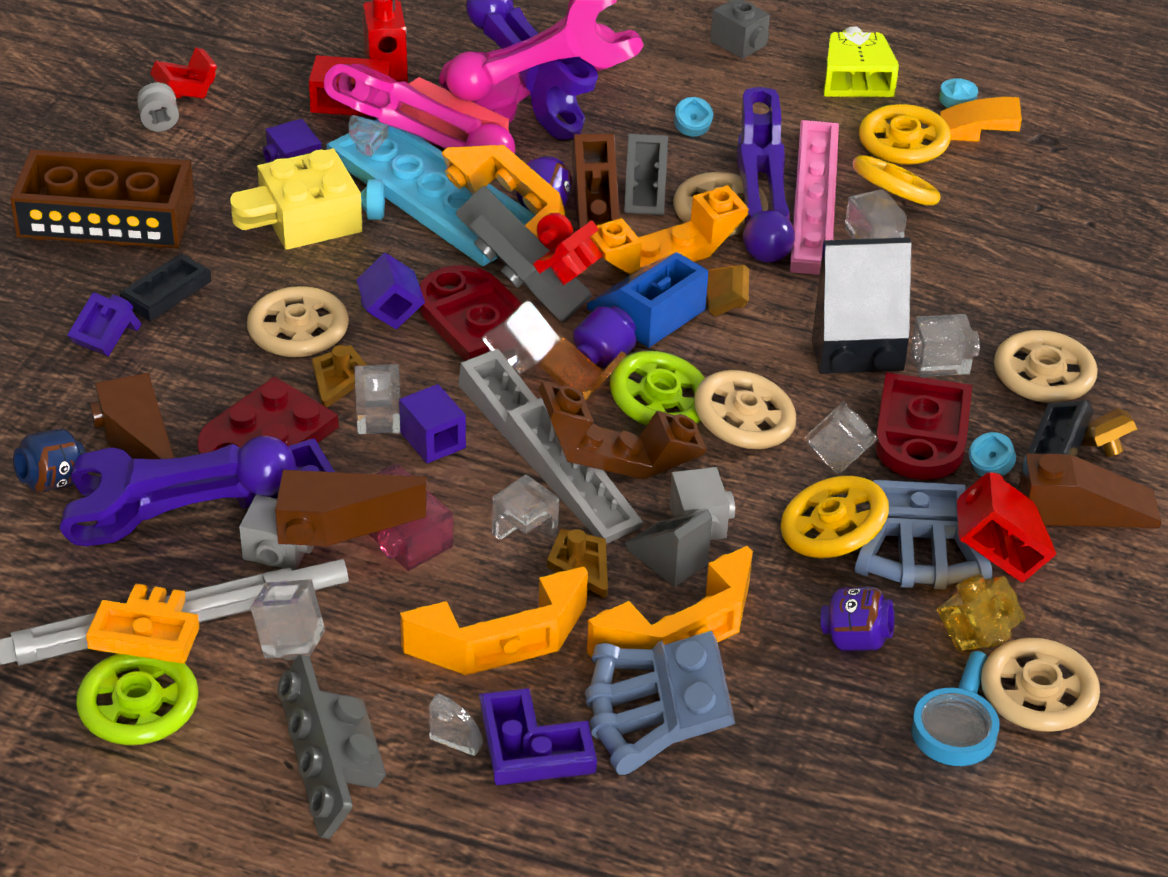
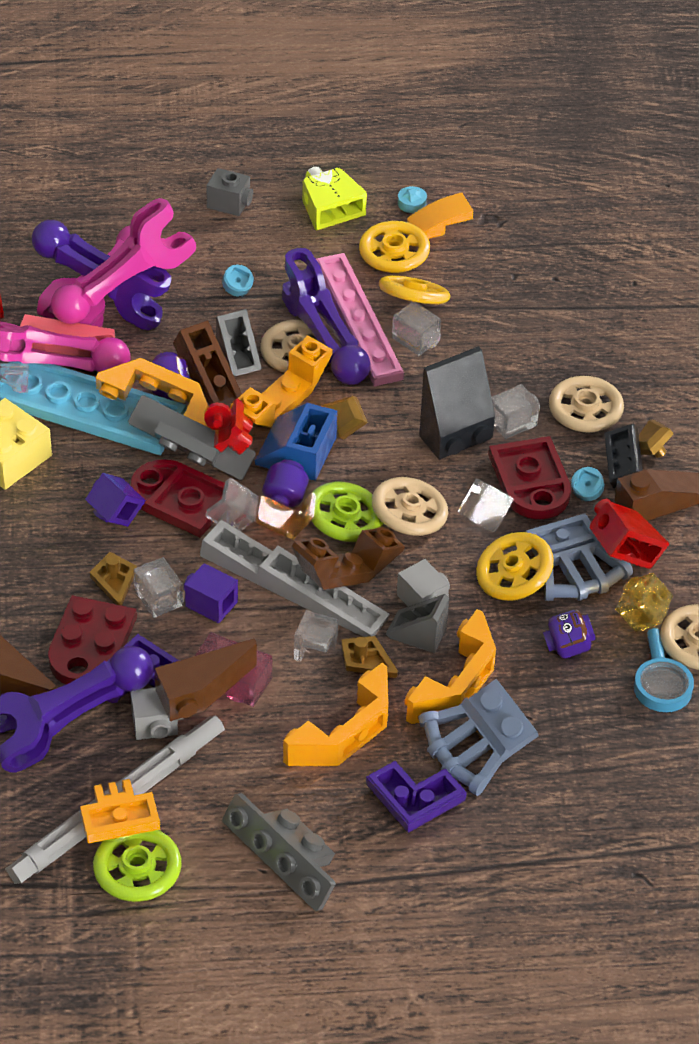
camera: 25 degrees left, 5 degrees up
(288, 619) = (209, 772): clear brick -> none
(297, 321) = (56, 523): tan plate -> none
(374, 199) = (53, 422): medium azure tile -> none
(453, 726) = (358, 804): clear tile -> none

